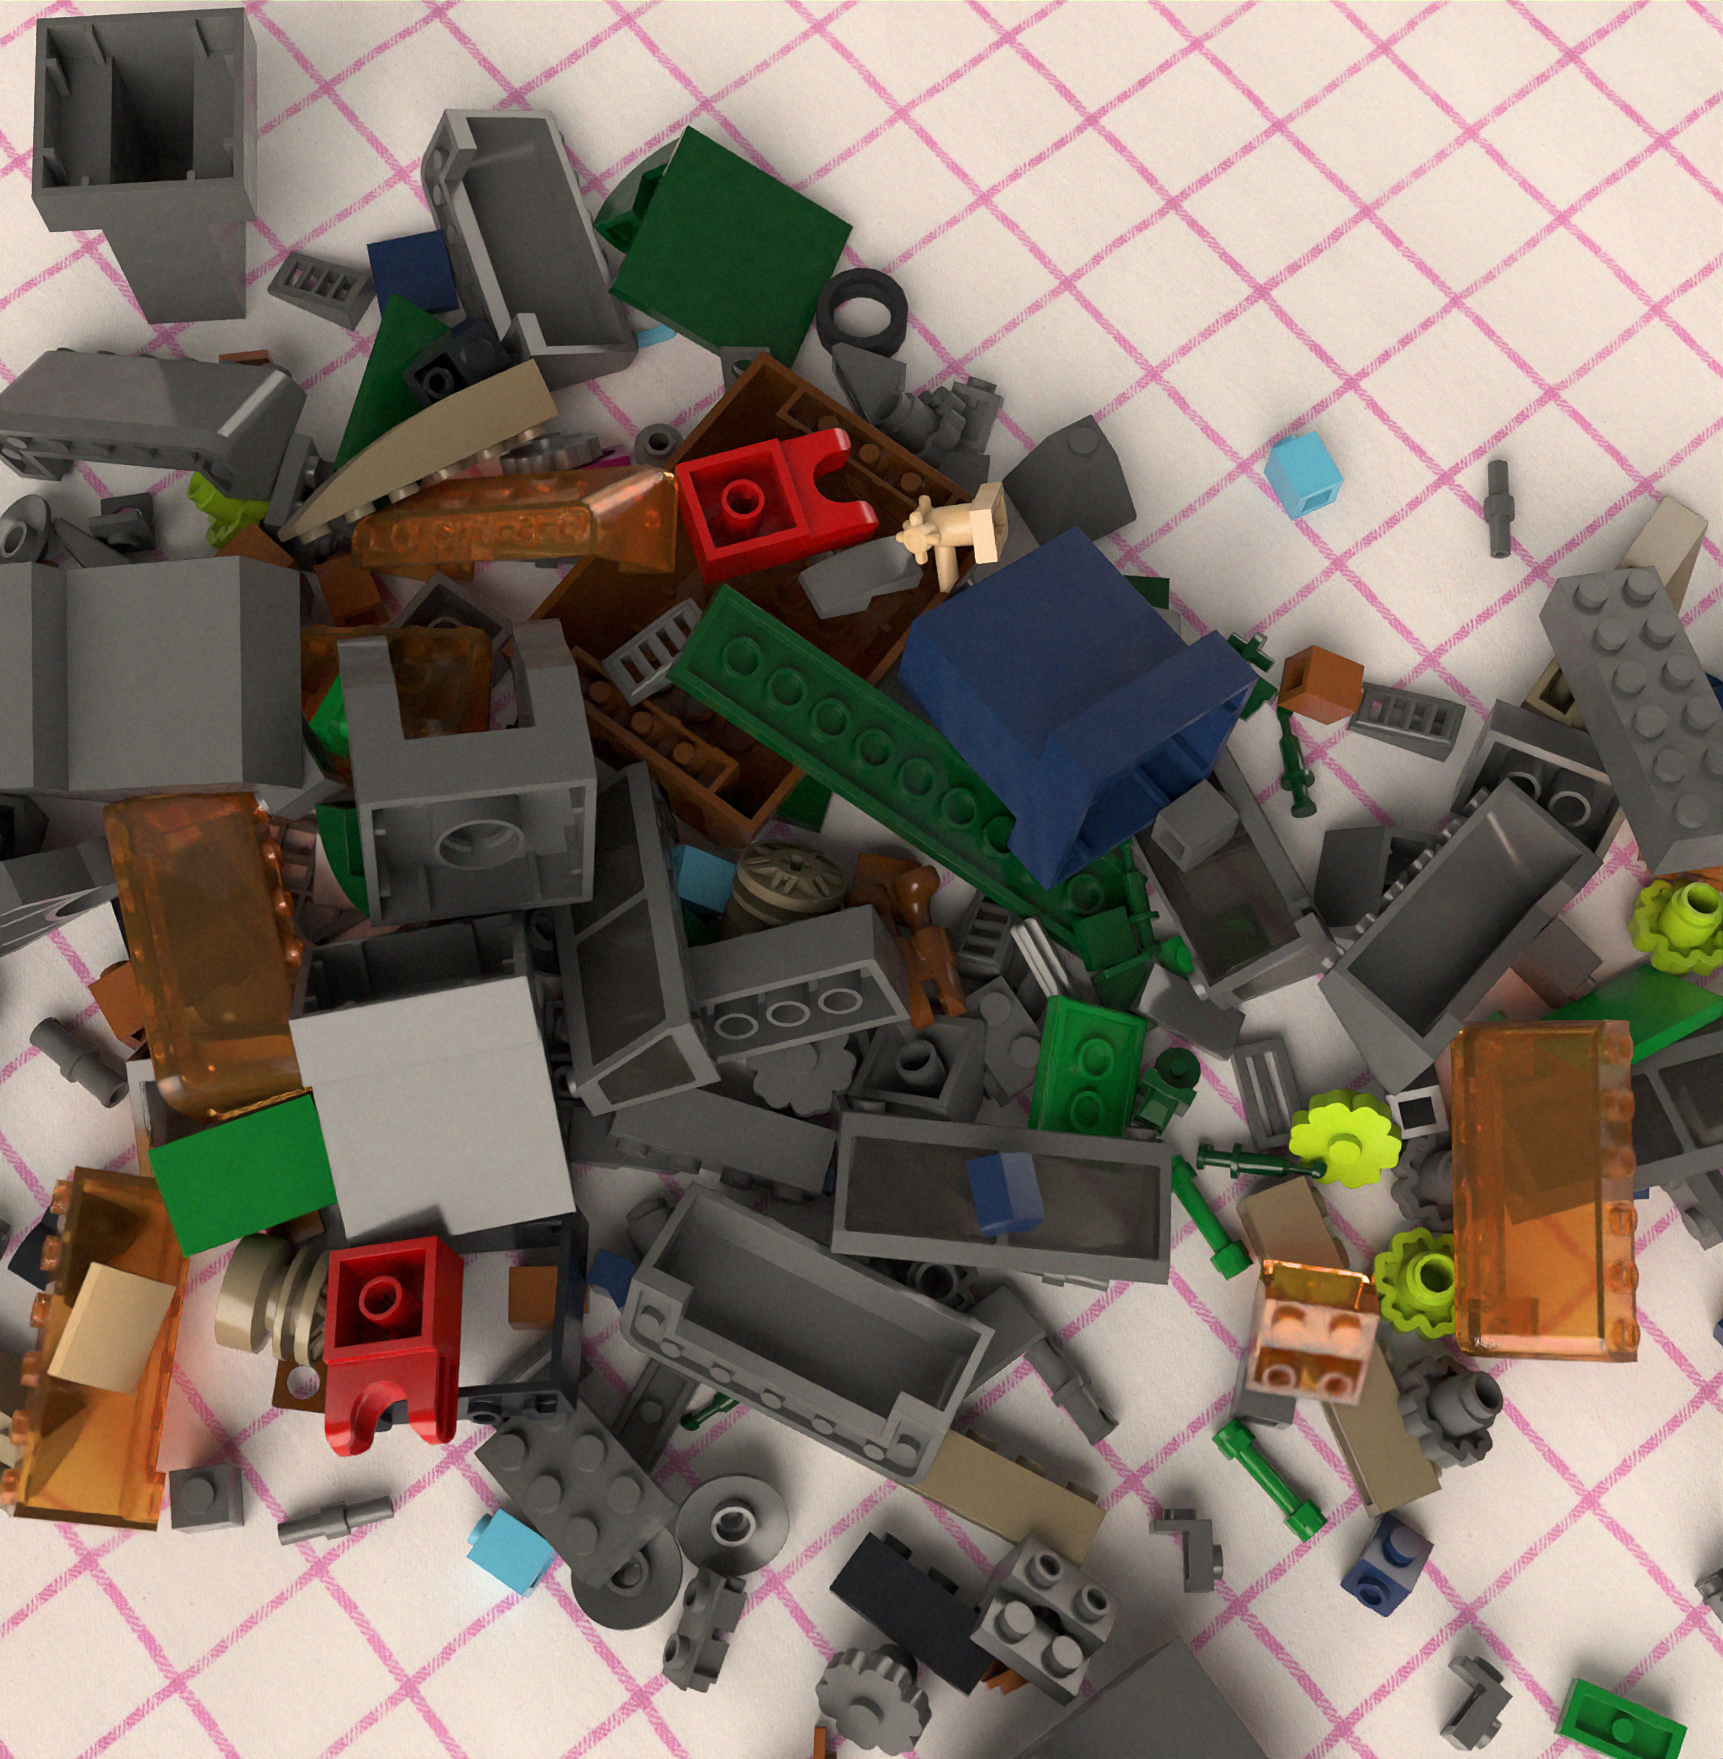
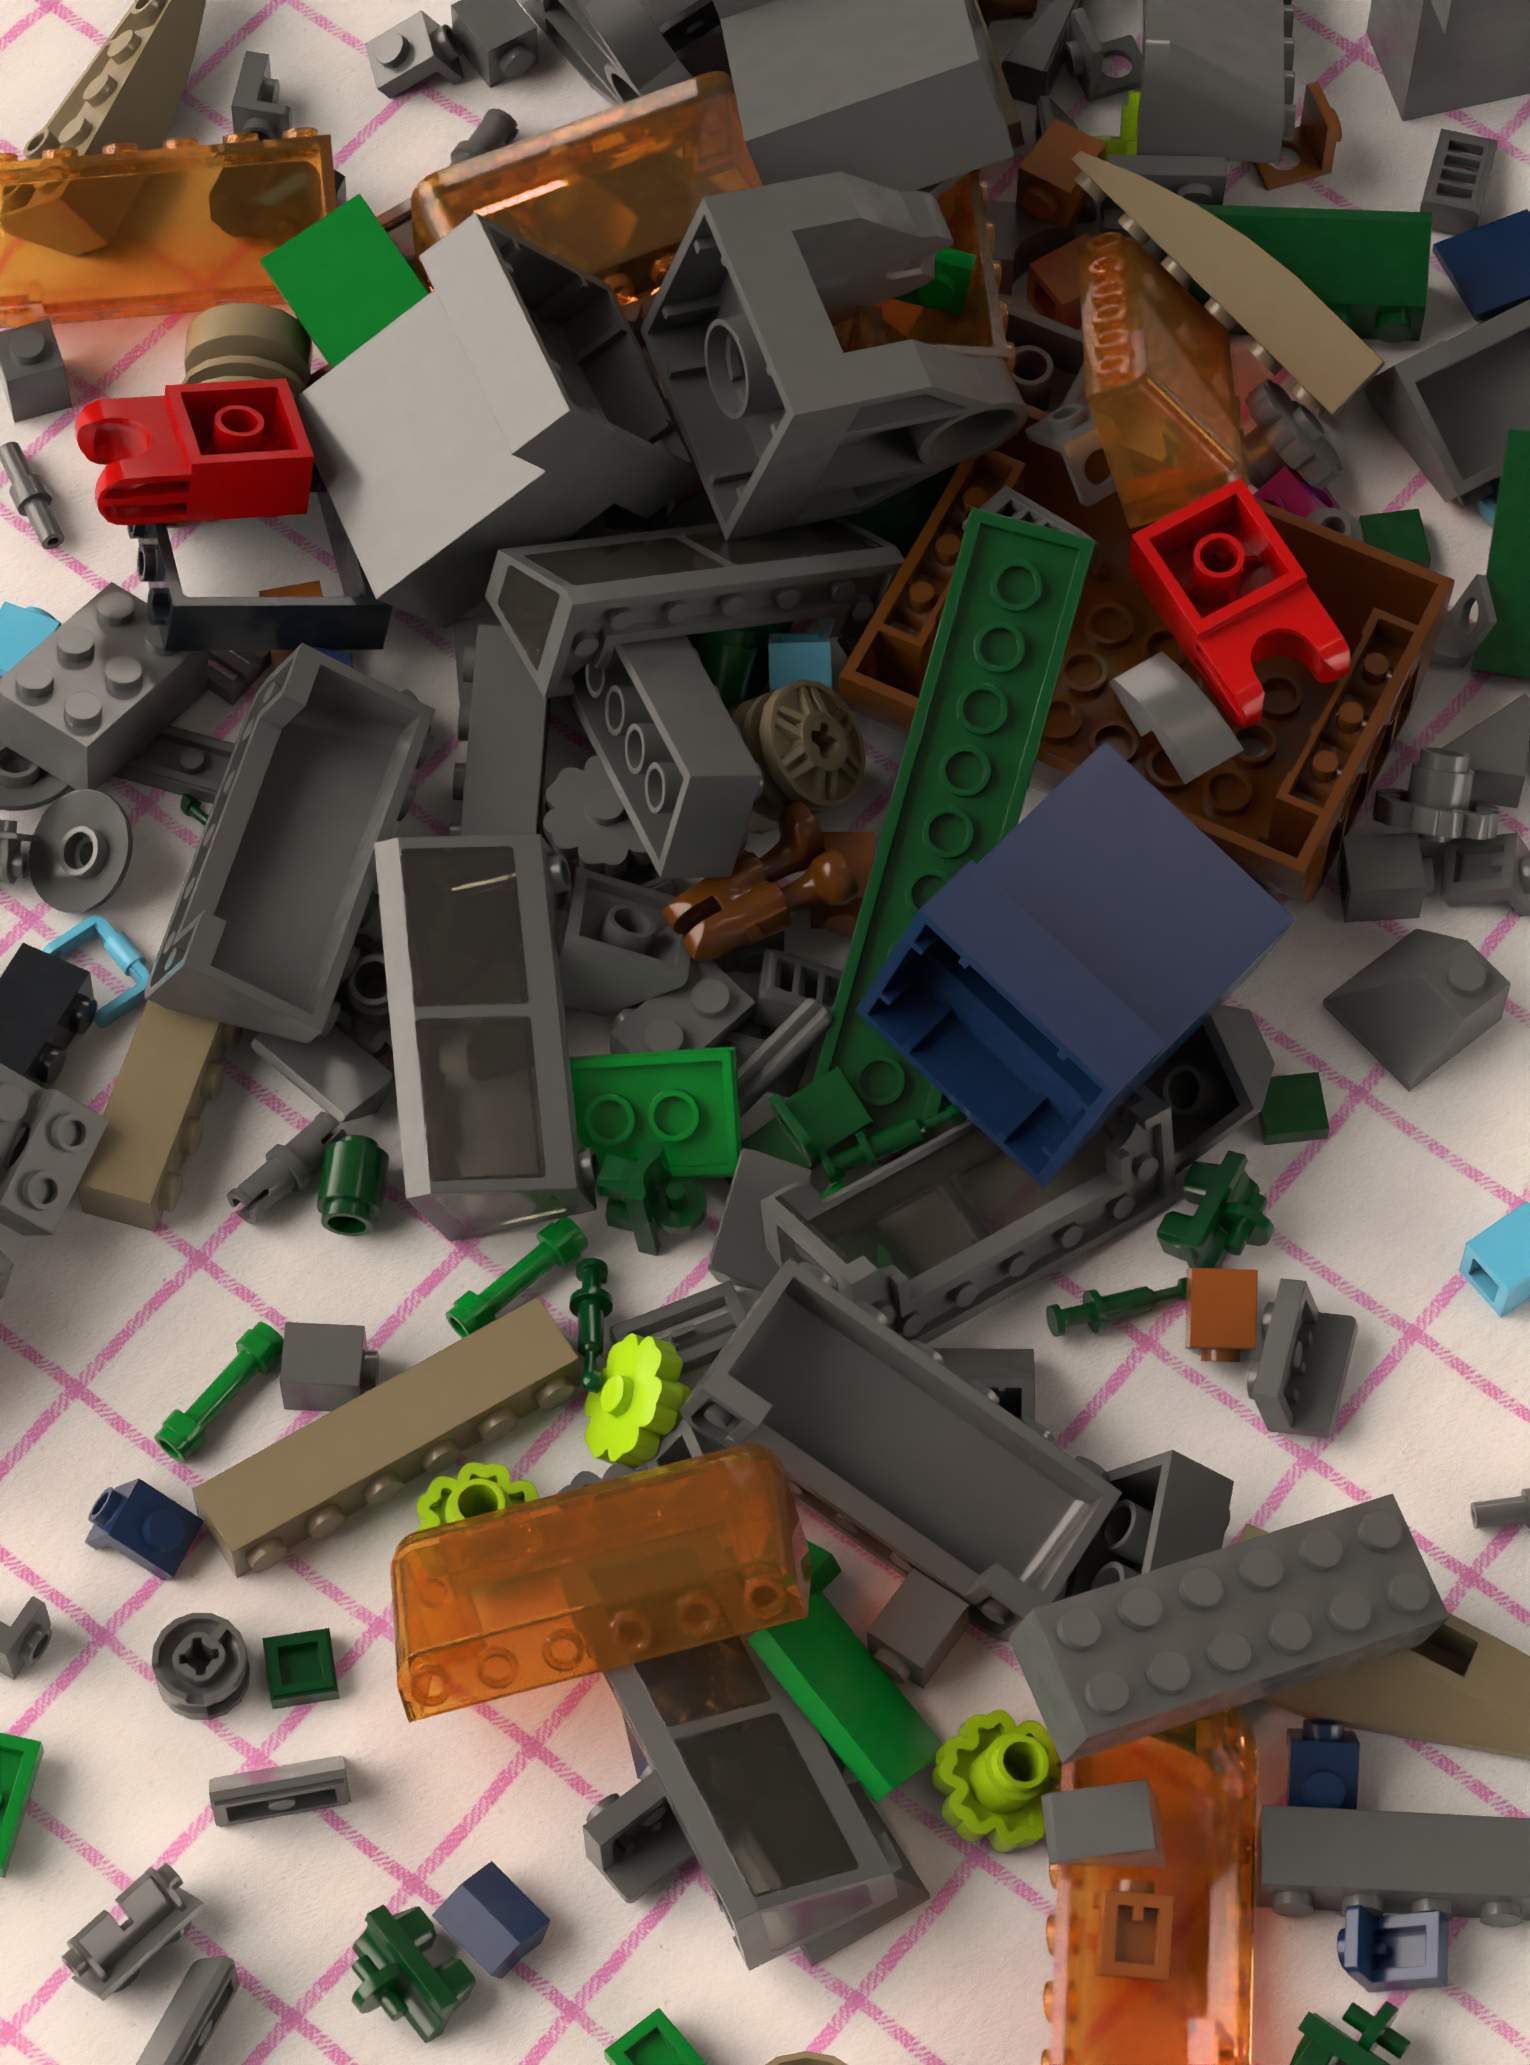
camera: 80 degrees right, 10 degrees down
(112, 1329) = (176, 219): tan slope -> none
(455, 362) = (1369, 300): black slope -> none
(575, 590) = (1076, 437): none -> dark grey bracket
(650, 408) = (1397, 534): none -> dark green tile
(832, 1502) = (120, 950): none -> medium azure piece
(967, 524) = (1256, 803): tan piece -> none
(1005, 1193) = (469, 993): dark blue piece -> none
(1101, 1336) = (352, 1185): none -> dark green brick
(1195, 825) = (991, 1179): dark grey brick -> none
(1200, 1557) = (124, 1320): dark grey bracket -> none
(1311, 1332) = (385, 1368): clear orange slope -> none
(1373, 637) = (1301, 1363): none -> dark grey bracket
(1428, 707) = (1221, 1379): dark grey slope -> none
(1449, 1409) = (326, 1555): dark grey plant -> none
(1518, 1533) = (201, 1664): none -> dark grey wheel
(1522, 1451) = (300, 1668): none -> dark green tile
(1628, 1484) = (279, 1791): none -> dark grey slope

